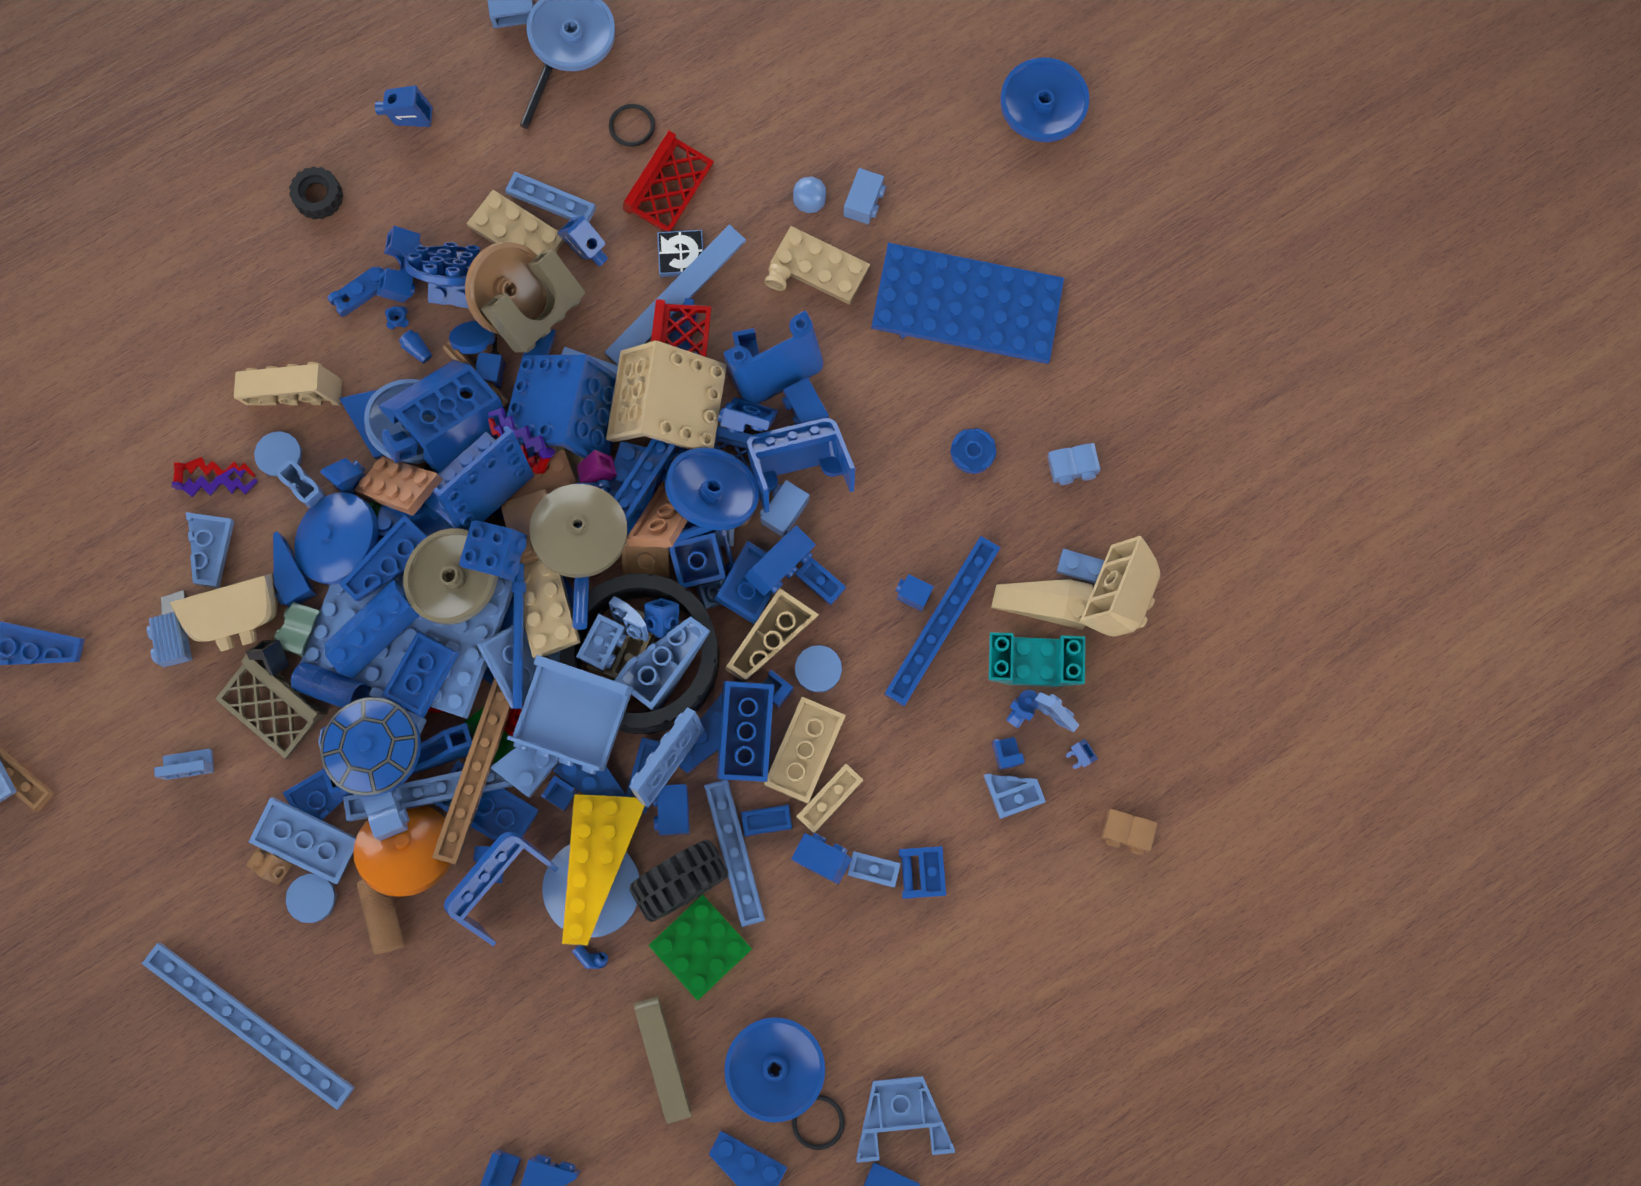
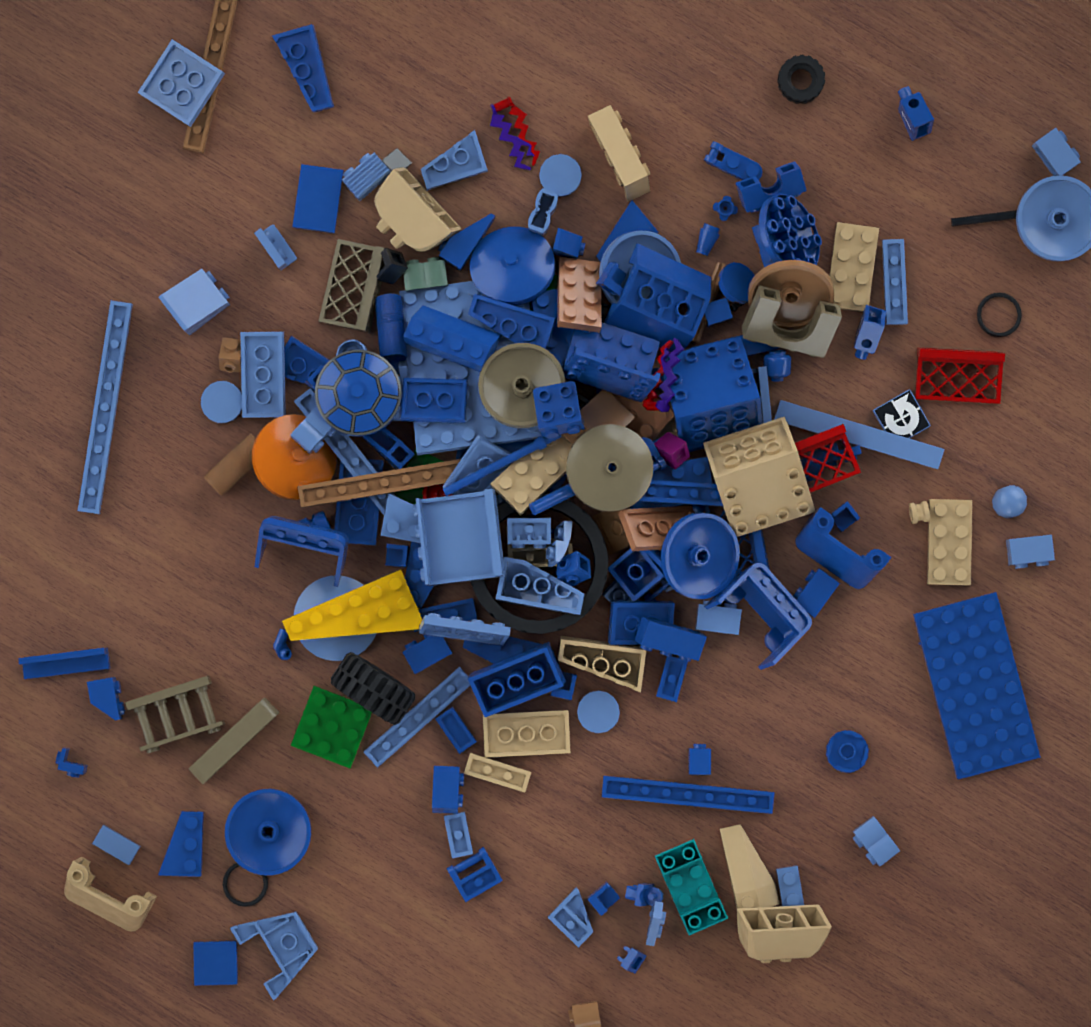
camera: 60 degrees right, 10 degrees up
(165, 699) = (318, 198): none -> blue tile
(191, 874) = (195, 301): none -> medium blue slope
(570, 337) = (778, 365): none -> blue head
(577, 1118) = (180, 693): none -> dark tan fence
(741, 413) = (782, 548): blue plate -> none

